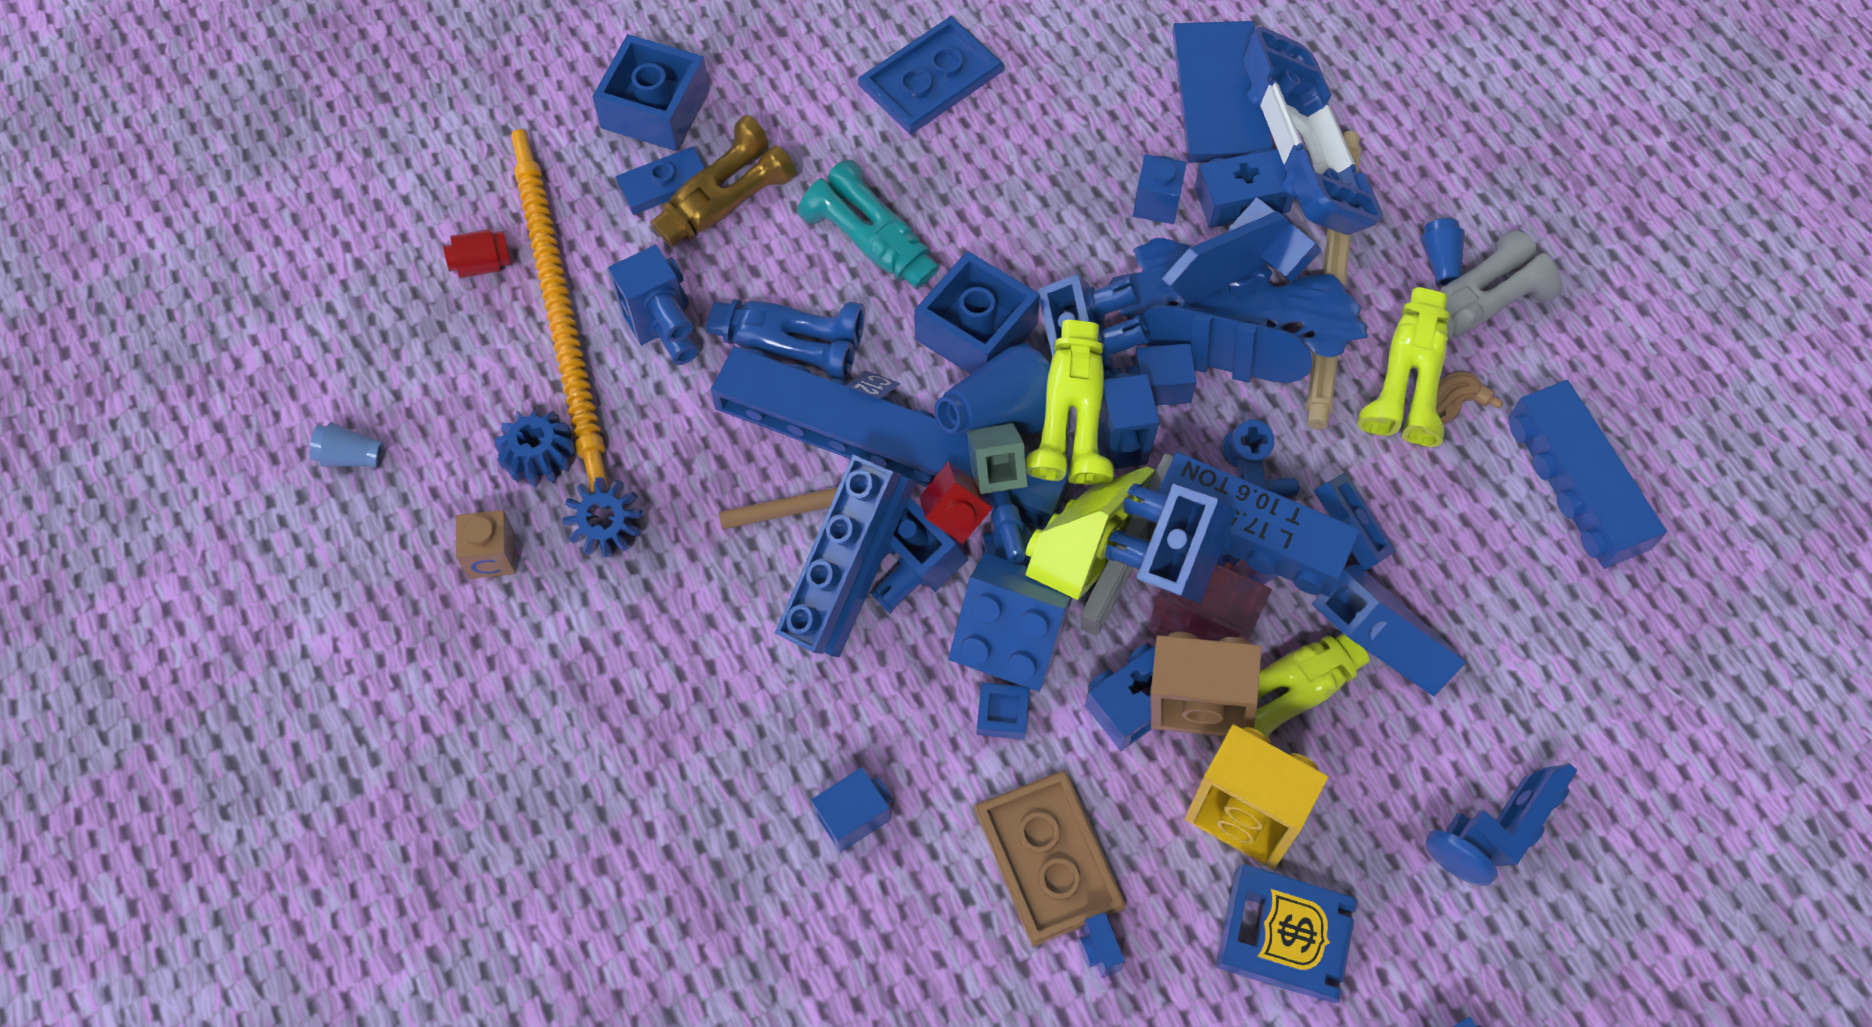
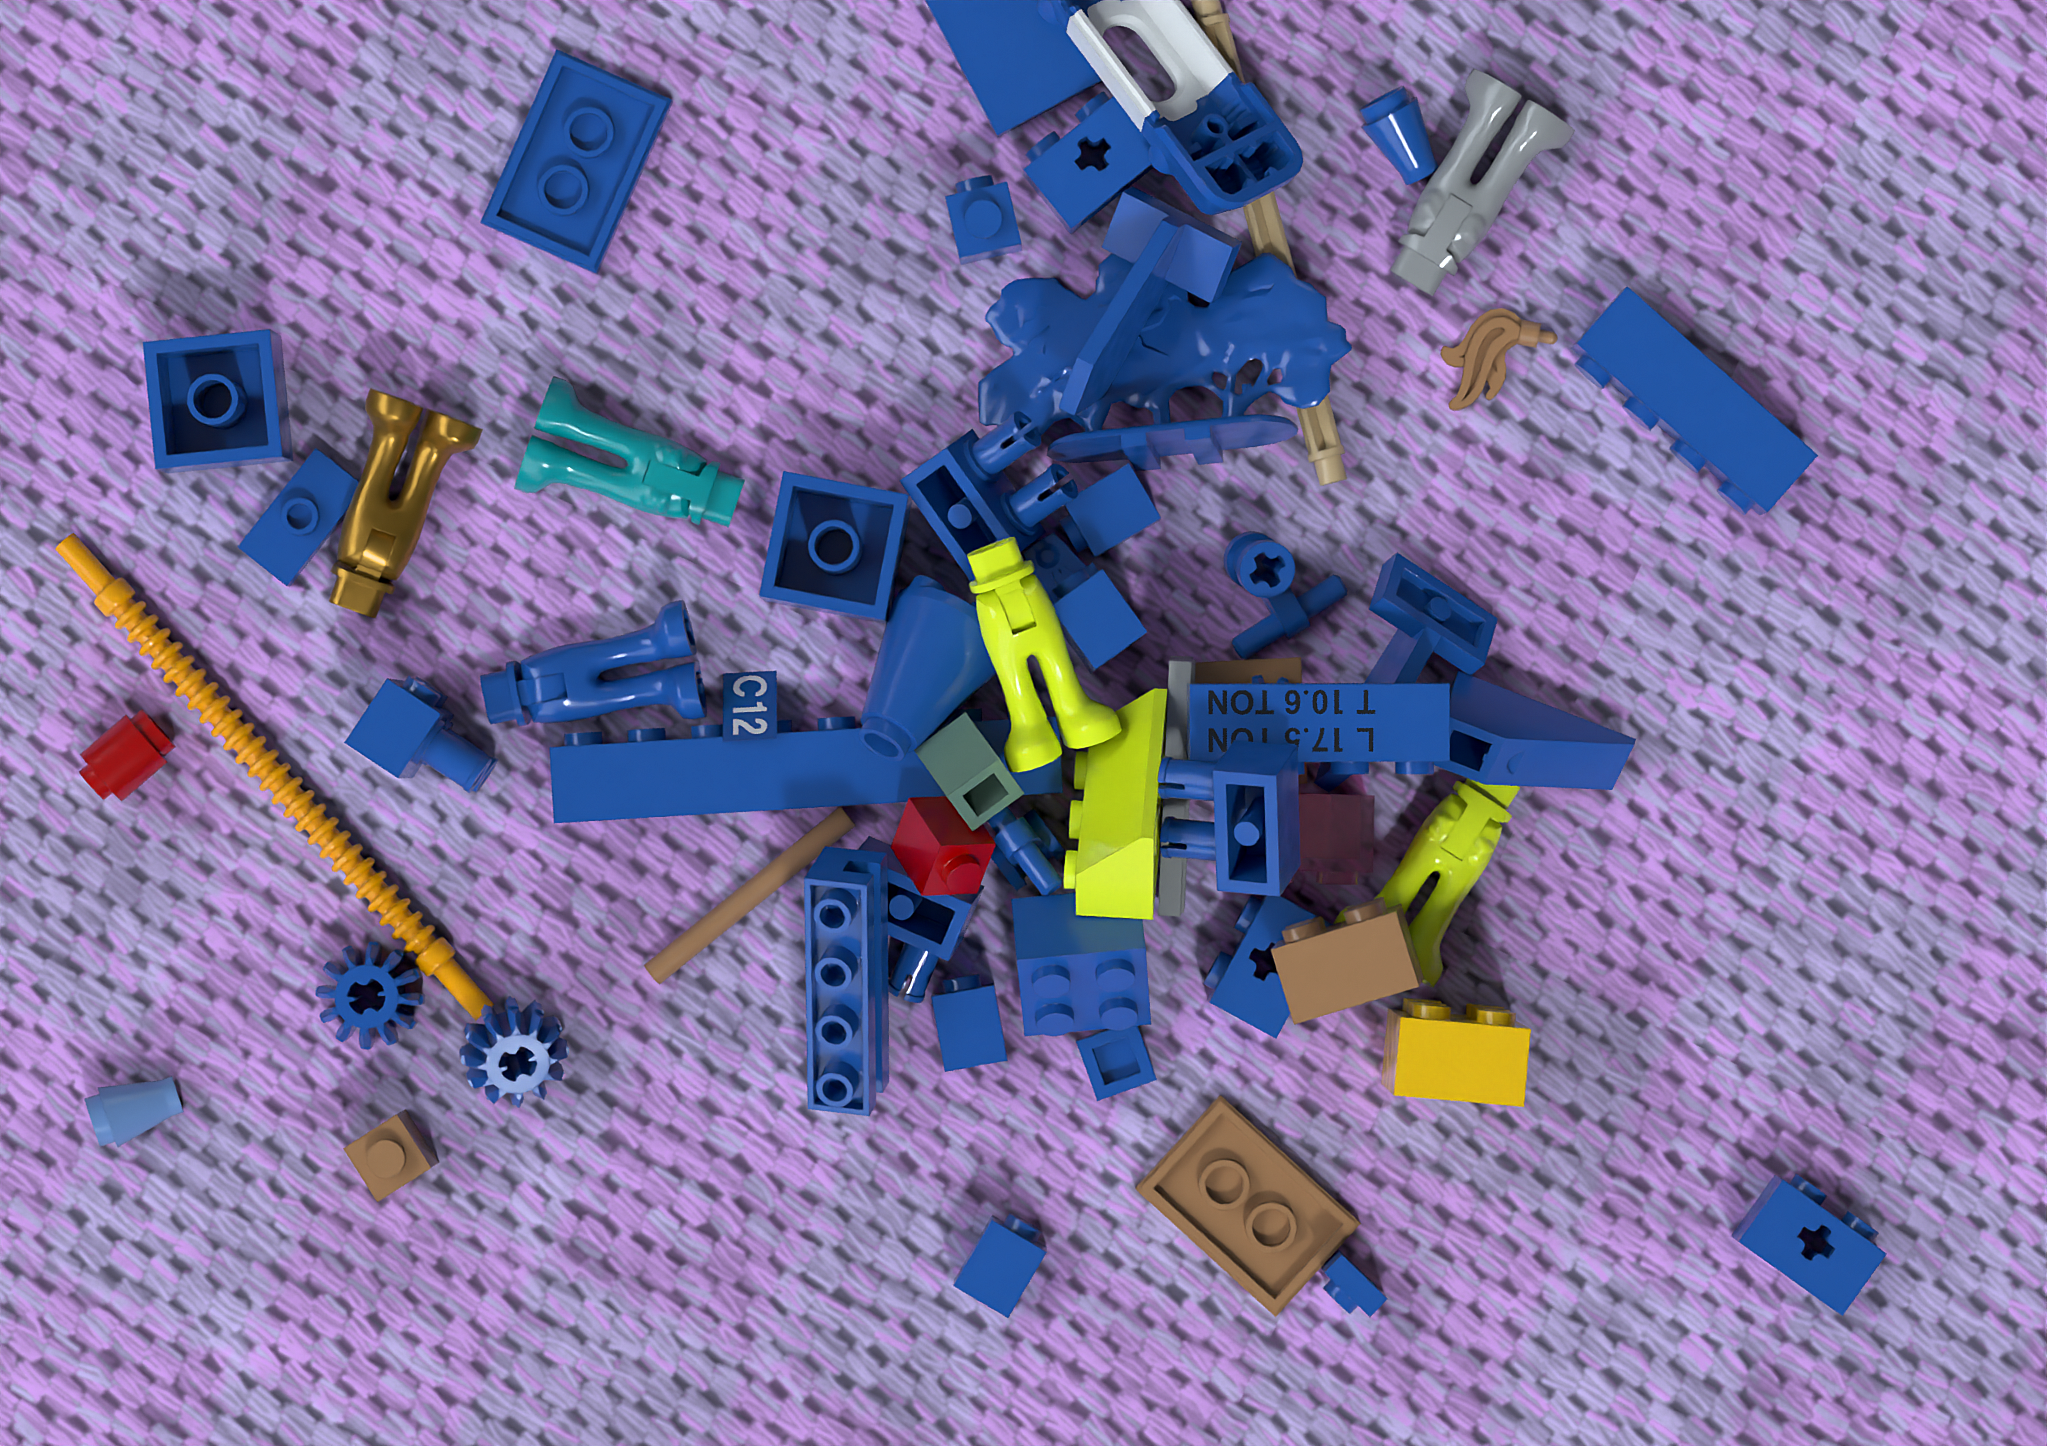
camera: 25 degrees left, 25 degrees up
(913, 639) = (968, 1023): none -> blue brick
(1298, 934) = (1563, 1166): blue container -> none
(1421, 345) = (1420, 321): neon yellow piece -> none
(1478, 845) = (1760, 928): blue piece -> none

